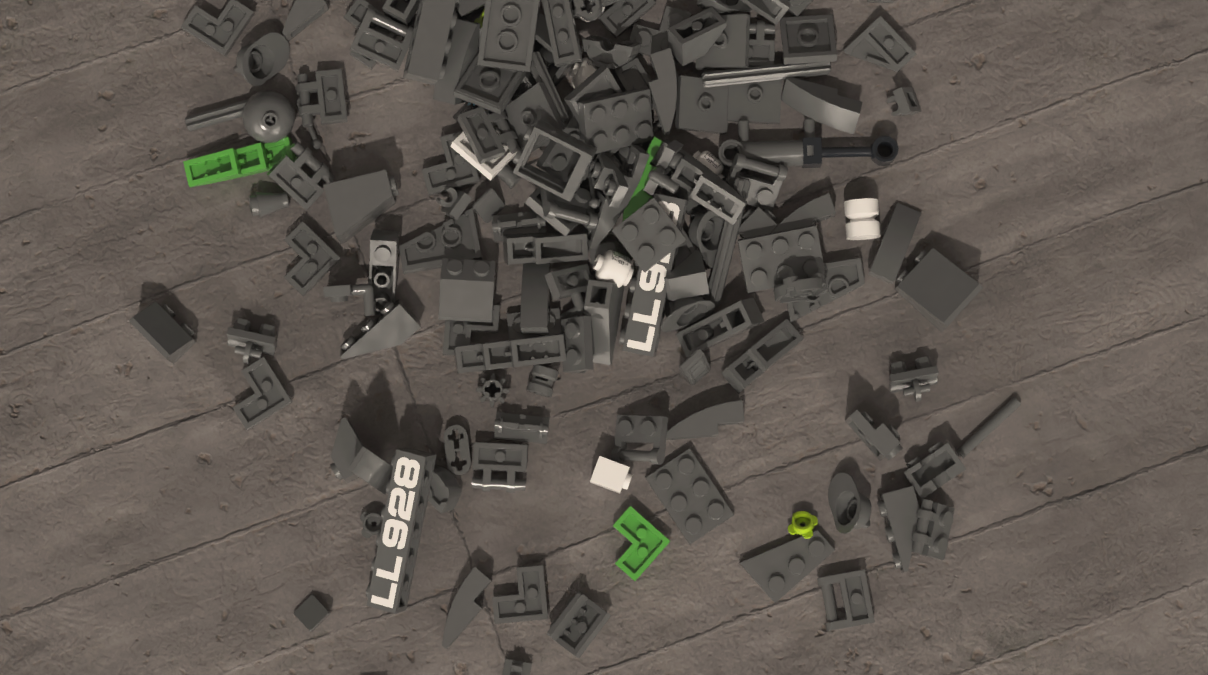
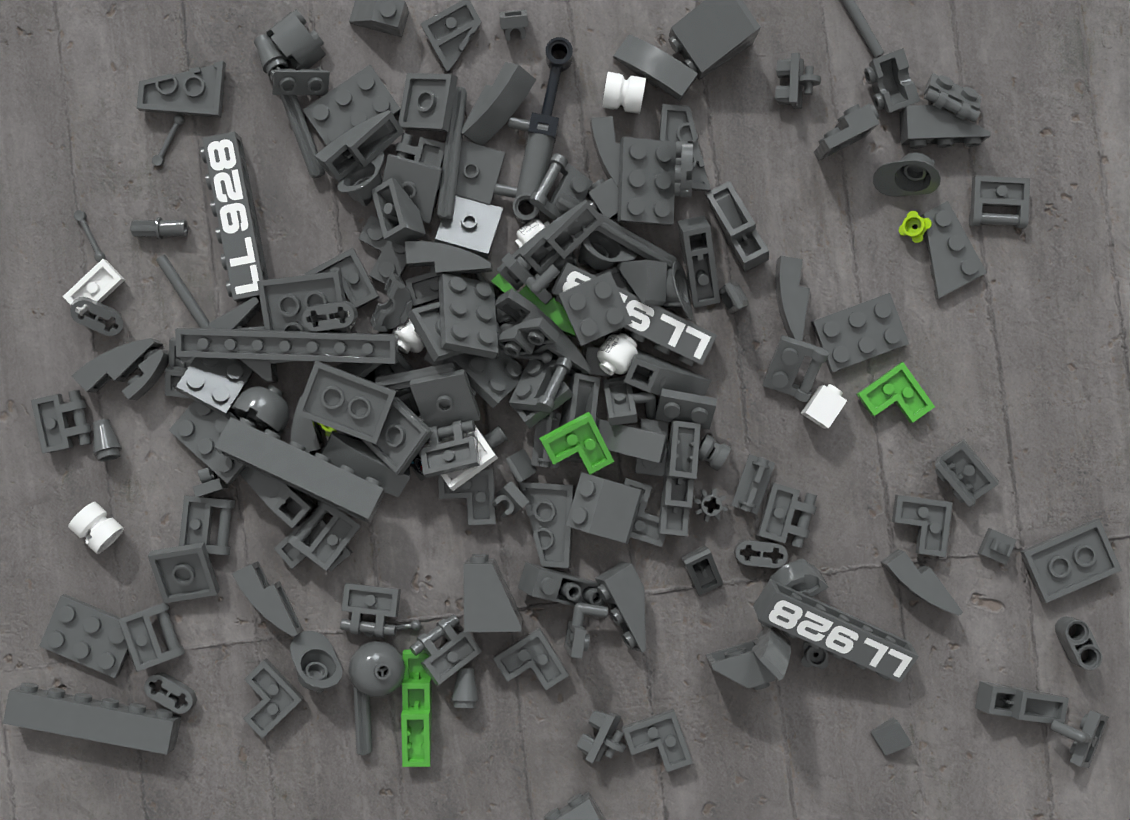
camera: 75 degrees left, 5 degrees up
(428, 398) = (702, 570): none -> dark grey slope
(527, 250) = (578, 436): none -> bright green plate
(543, 179) = (512, 403): dark grey window -> none

